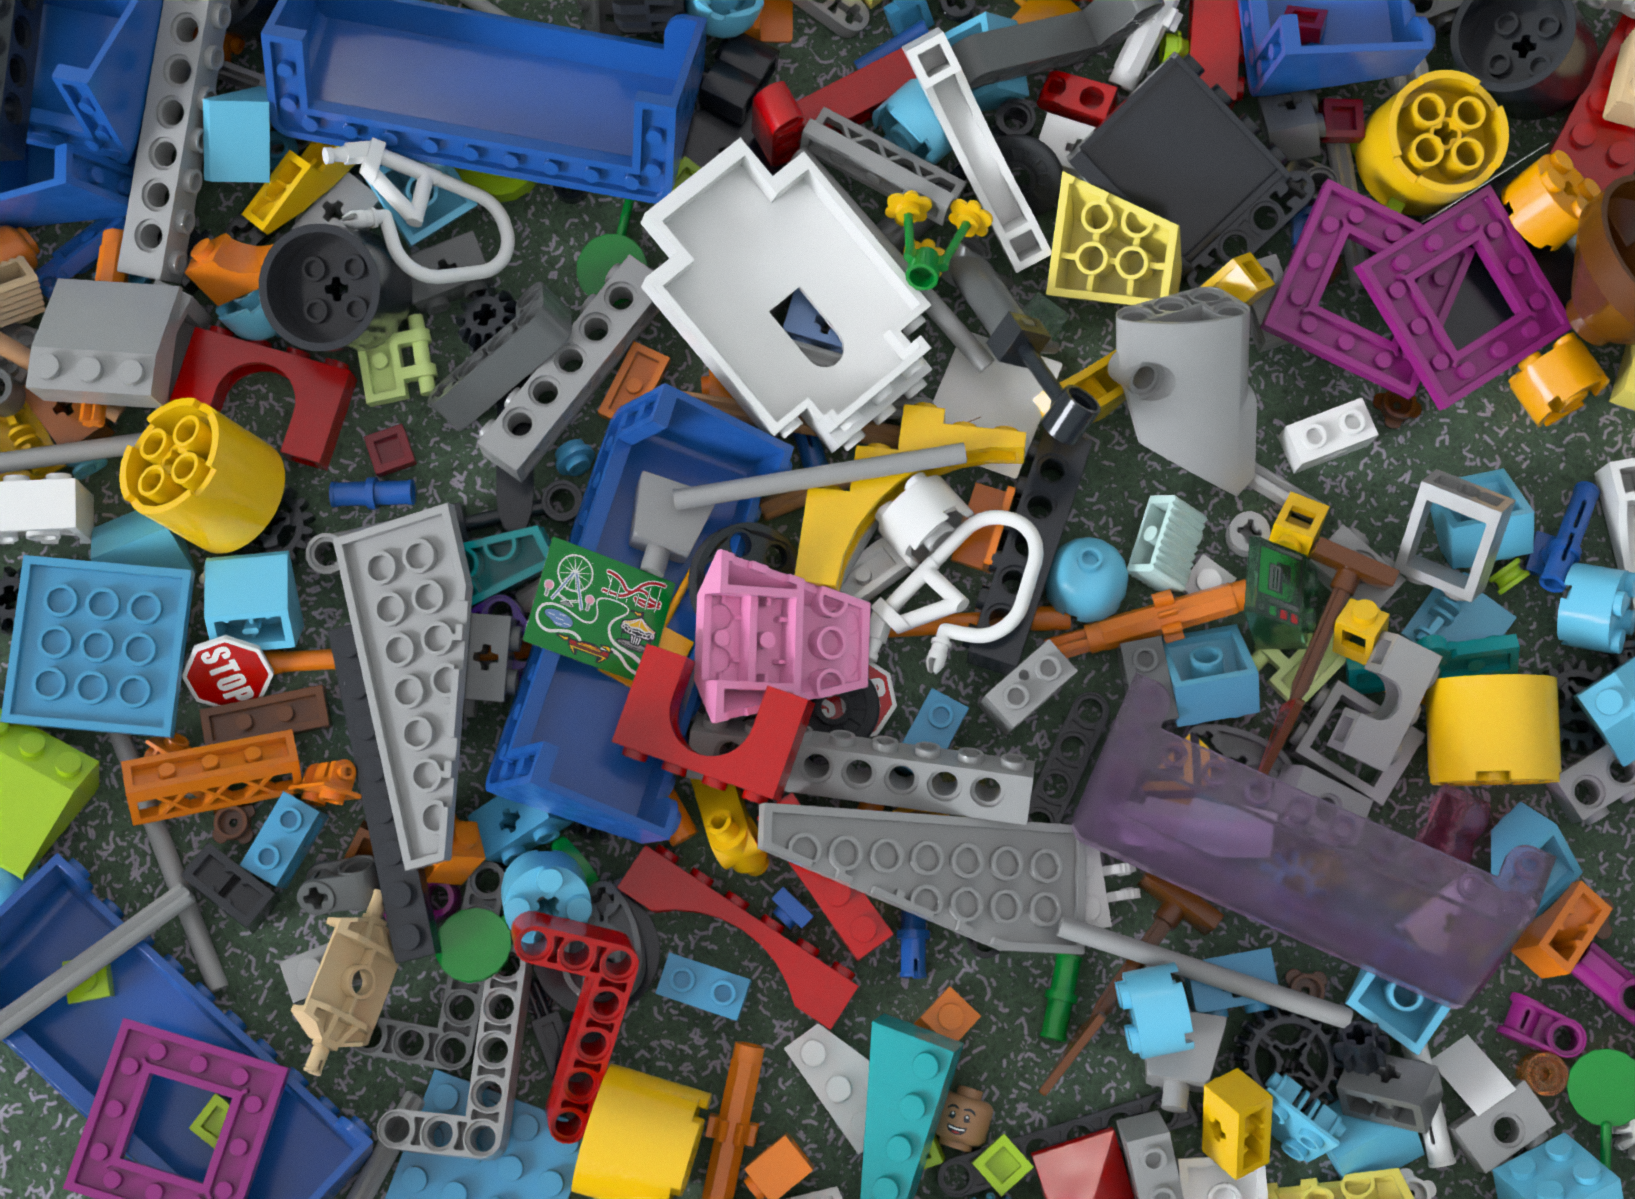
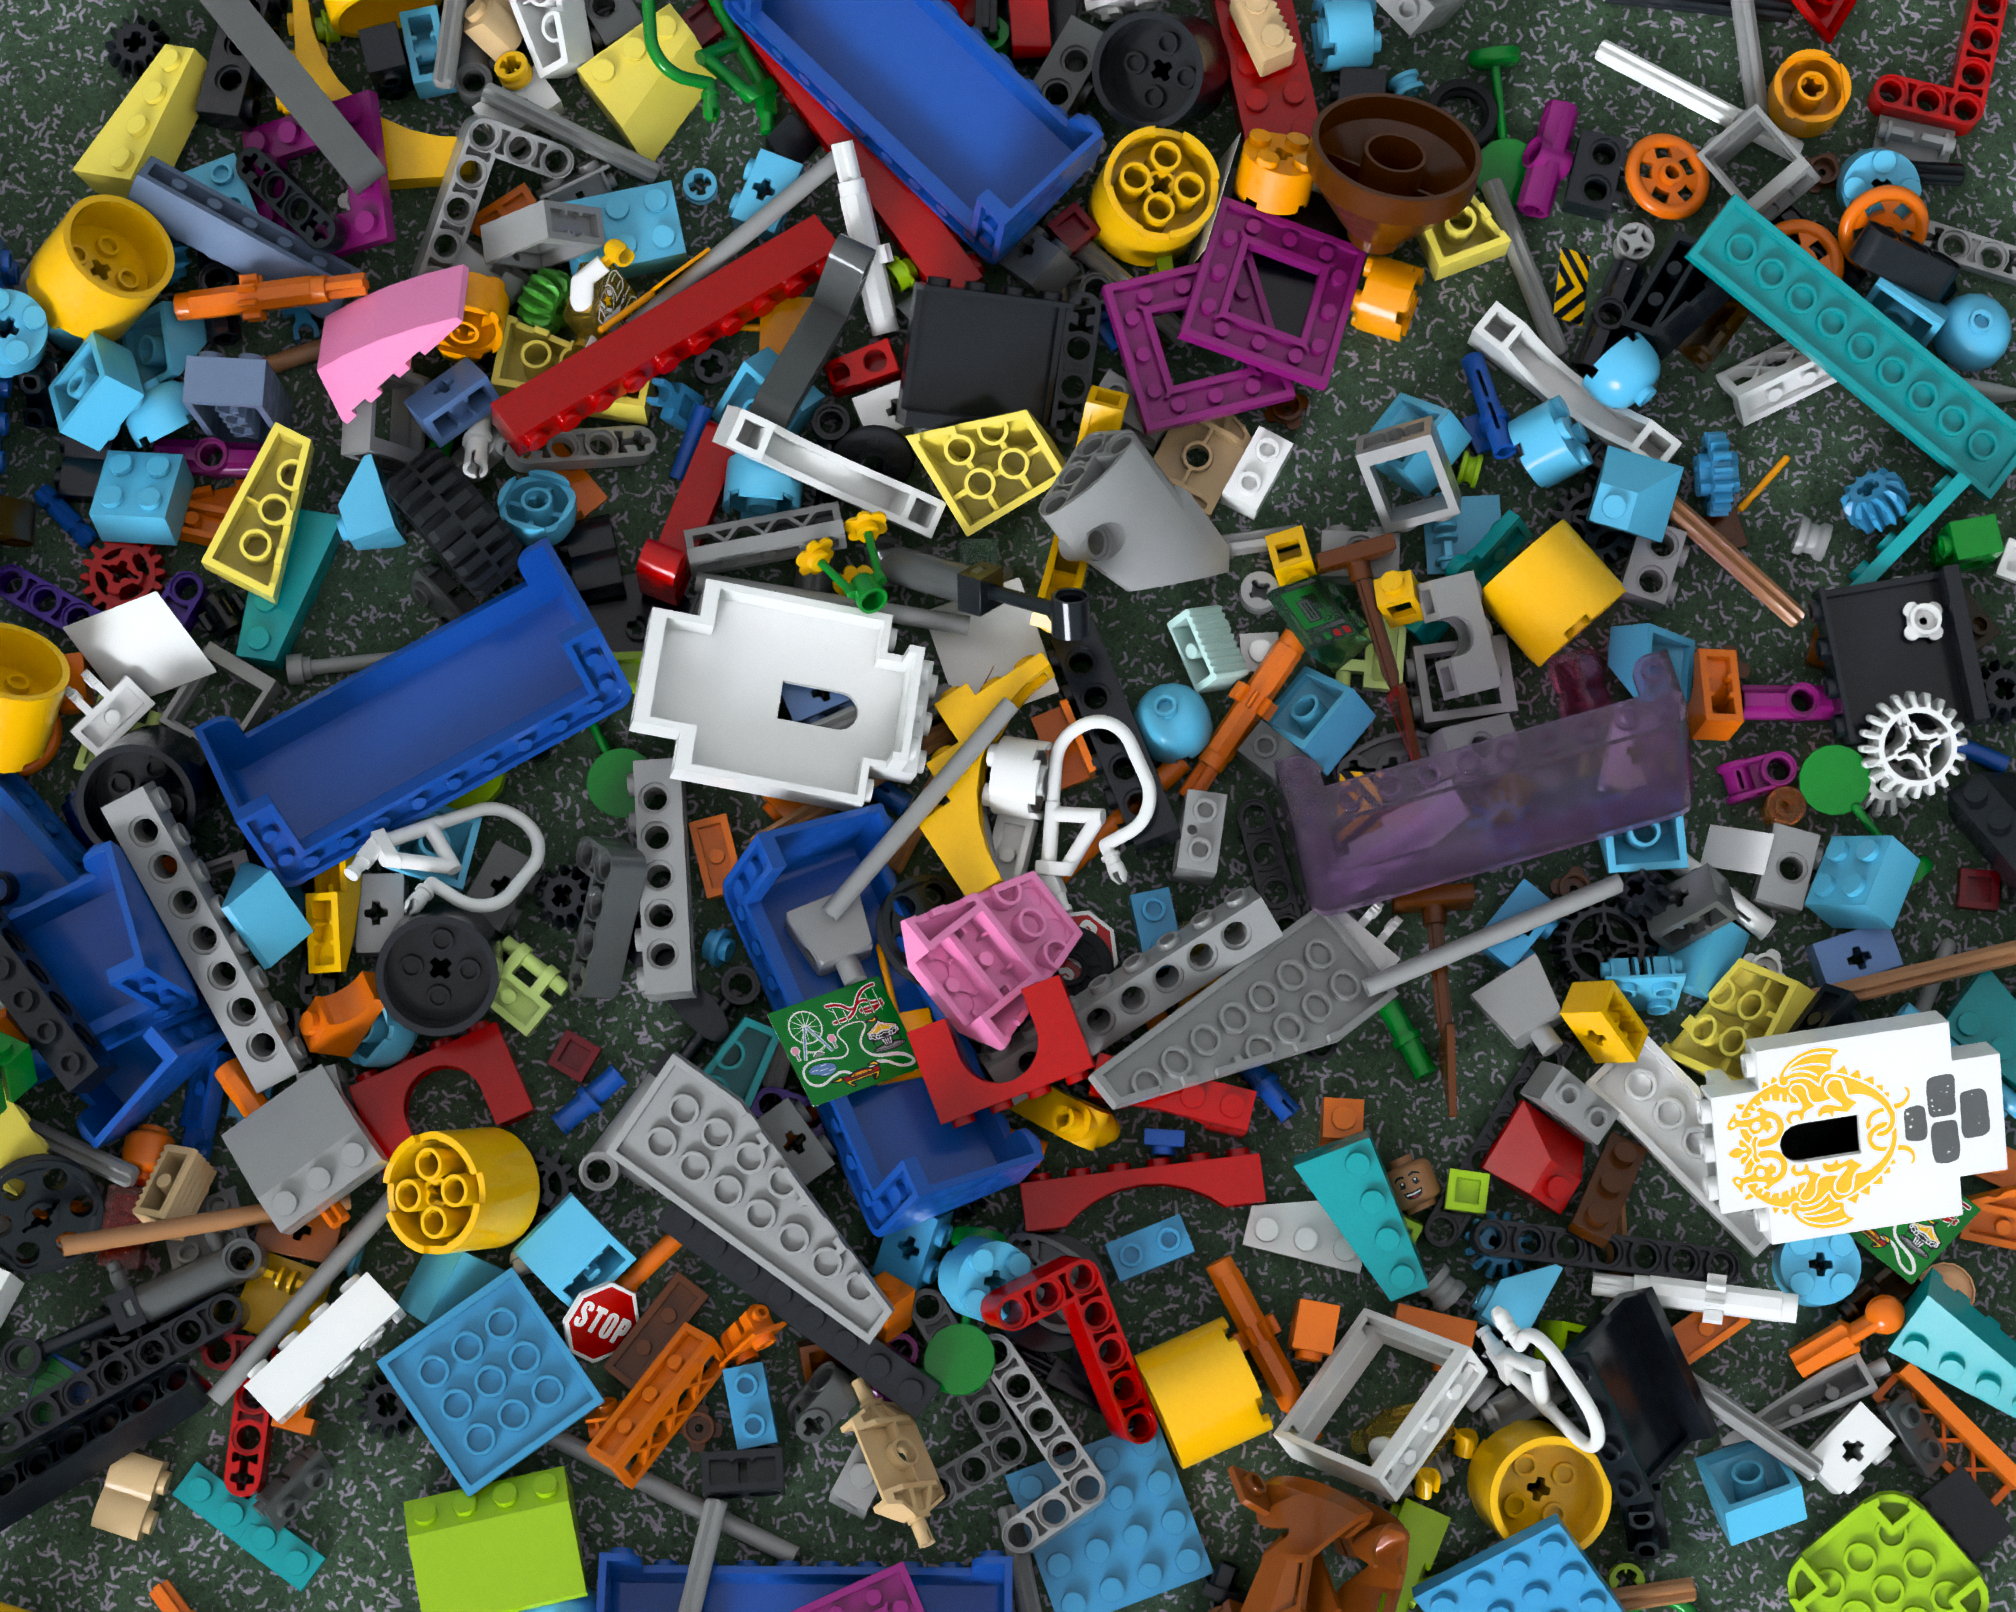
camera: 45 degrees left, 0 degrees up
(1156, 1011) = (1483, 989): medium azure brick -> none
(1310, 22) = (990, 176): dark red plate -> none
(1320, 381) = (1223, 442): none -> tan plate

